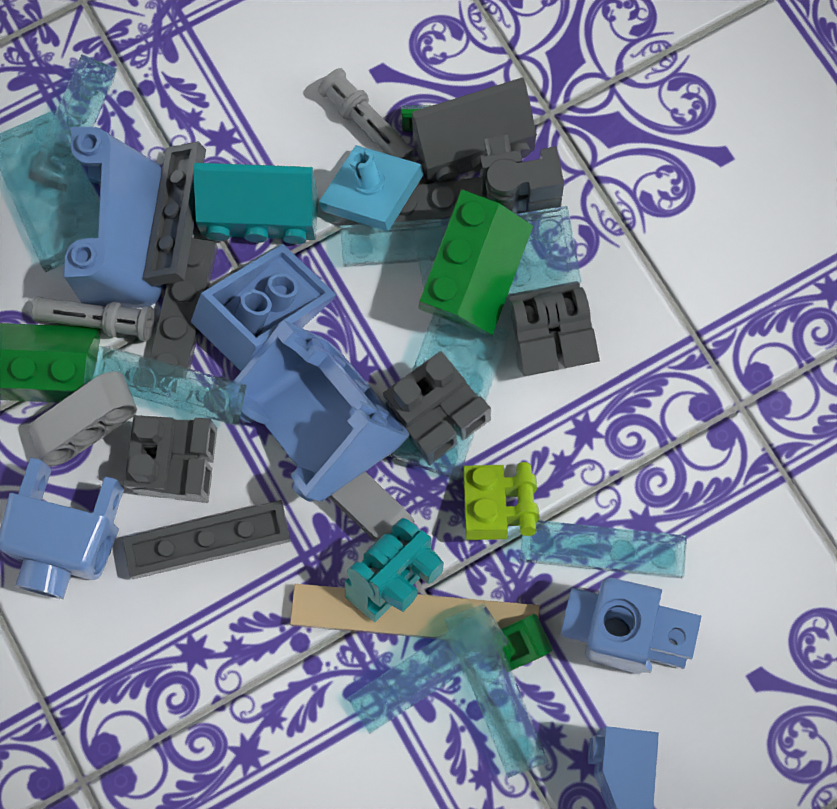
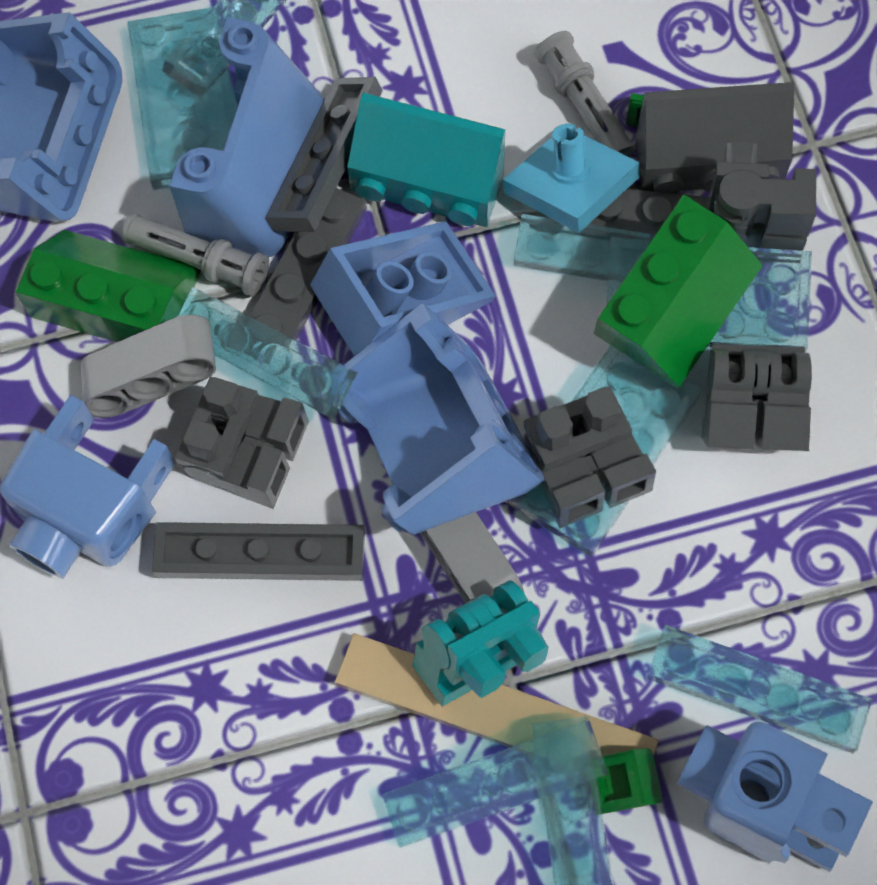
camera: 15 degrees right, 5 degrees down
(486, 501) = (621, 589): lime plate -> none

